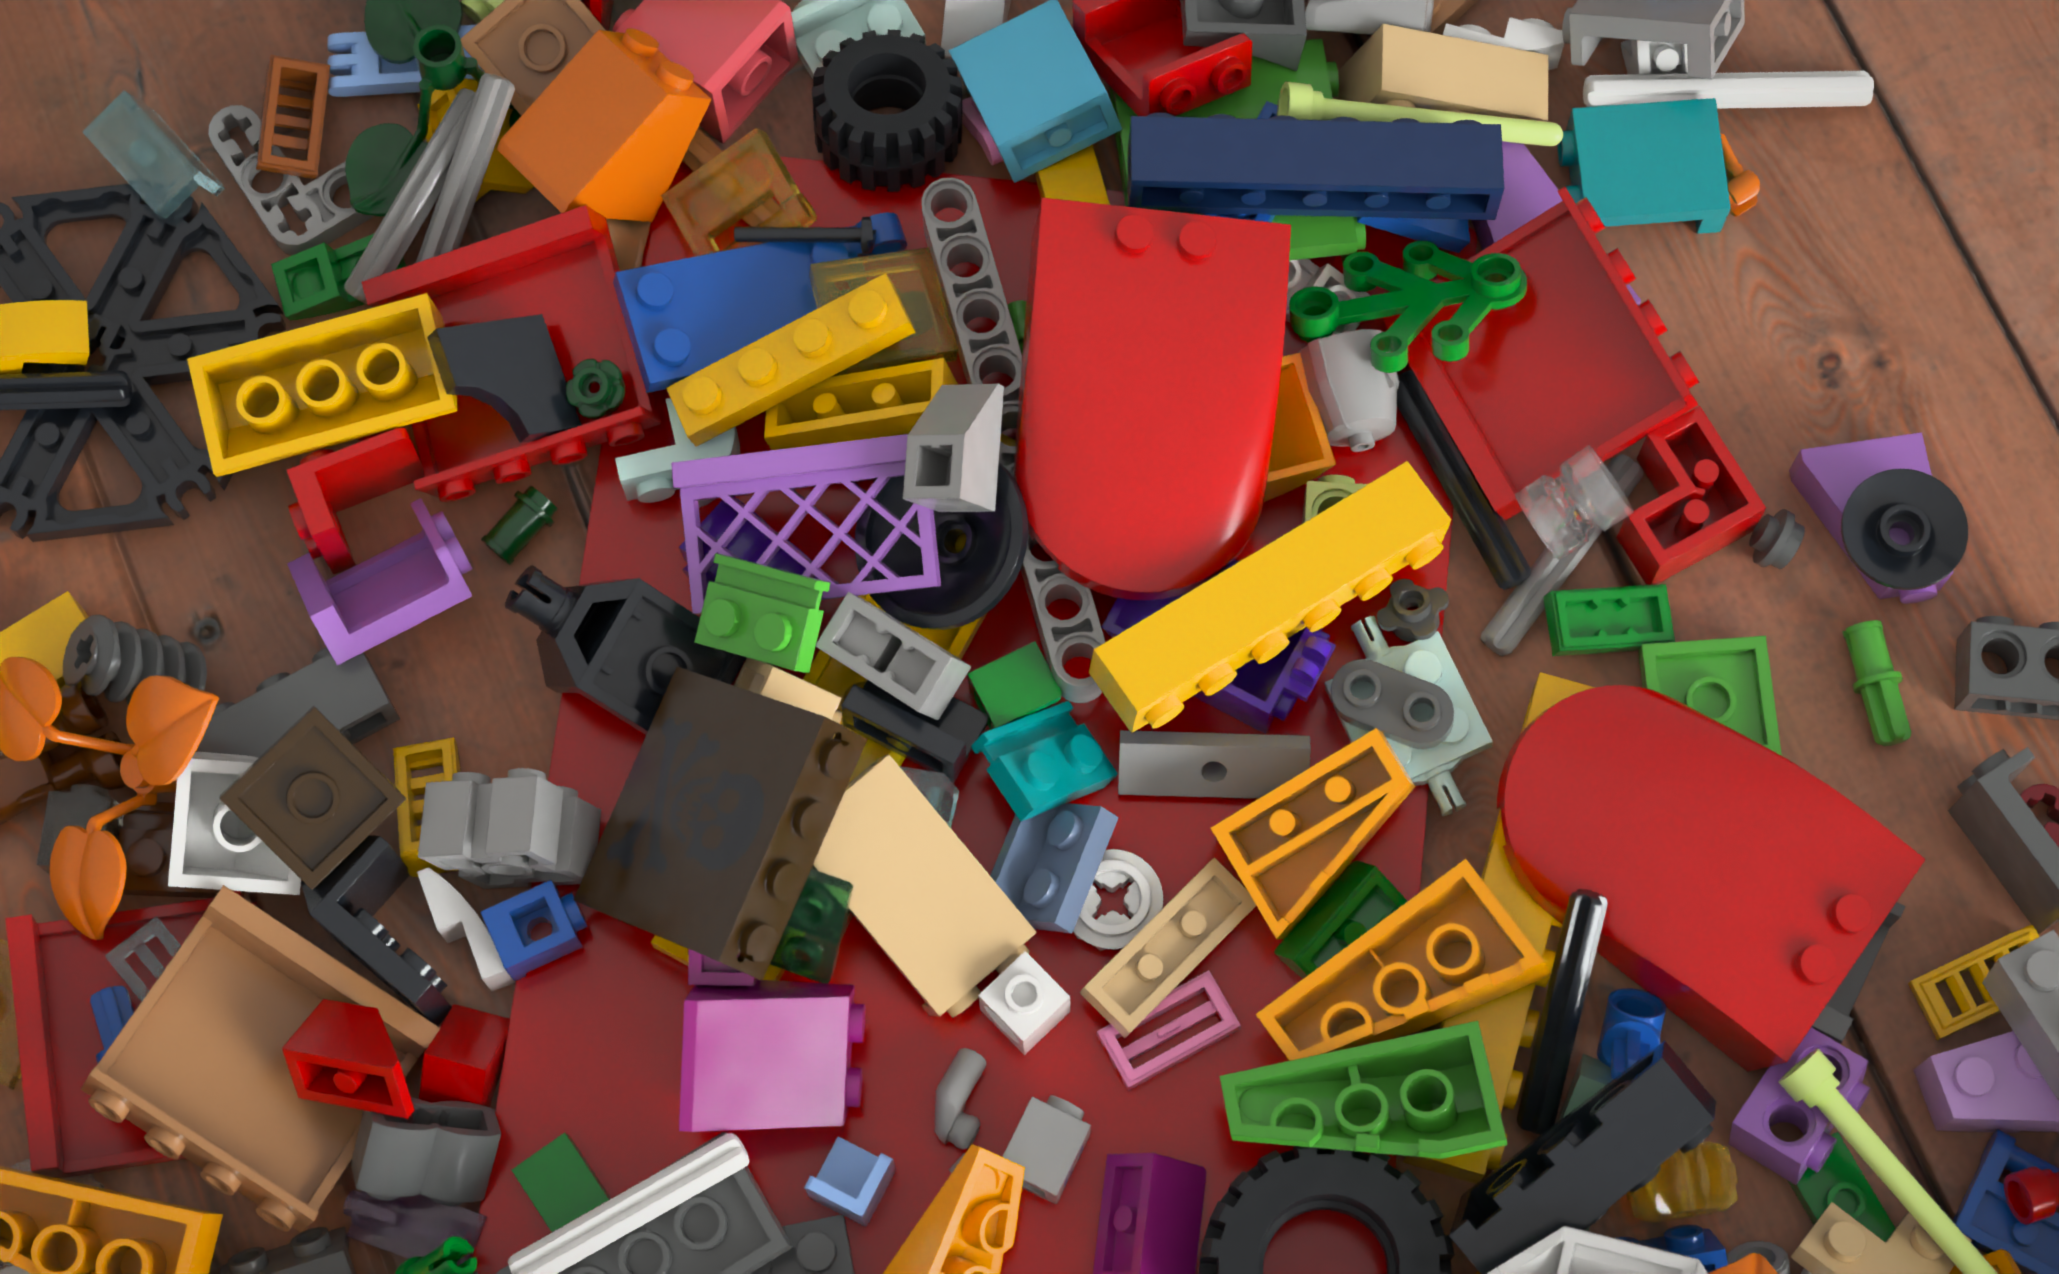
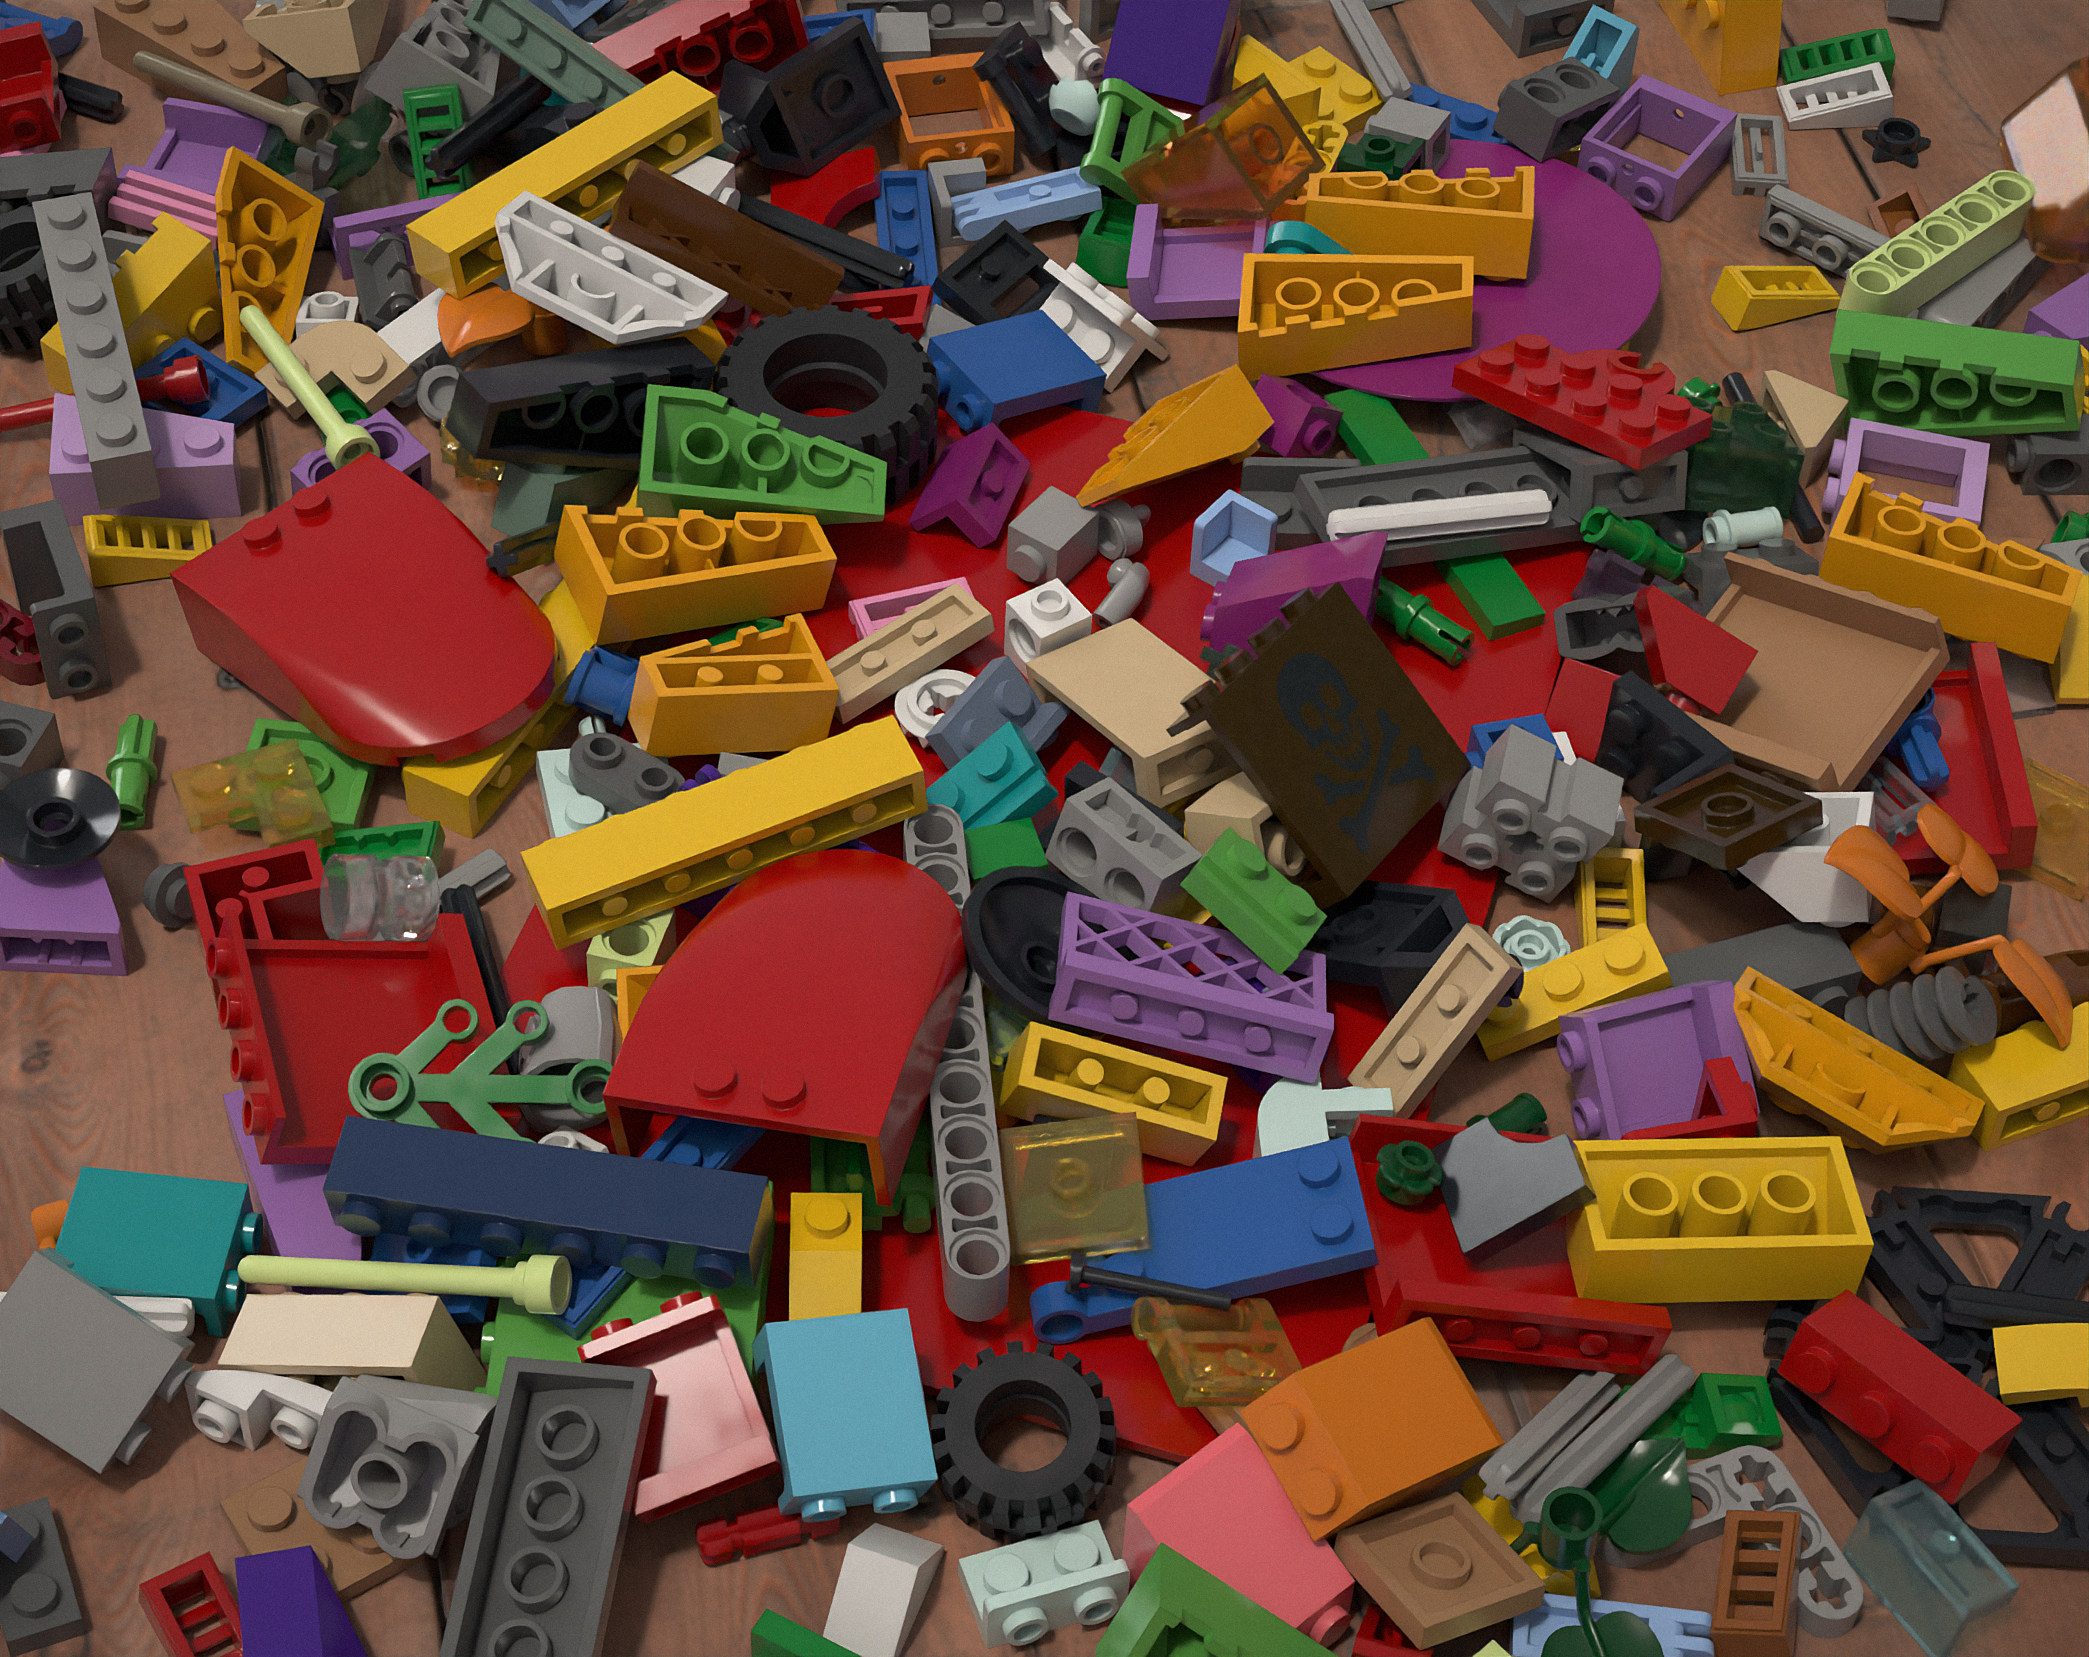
camera: 175 degrees left, 25 degrees down
(173, 263) = (1899, 1396): none -> red brick
(204, 584) = (1843, 1075): none -> light orange wedge
(457, 670) = (1587, 978): none -> yellow plate
(504, 709) = (1531, 941): none -> light aqua plate
(582, 541) = (1438, 1019): none -> tan plate
(644, 1121) = (1418, 620): none -> green pin
(790, 360) = (1182, 1126): yellow plate -> none
(956, 450) = (1026, 948): light grey slope -> none
(1447, 830) = (603, 684): none -> blue piece
(1629, 1028) = (501, 502): blue axle -> none
(1731, 658) = (261, 784): none -> clear yellow plate

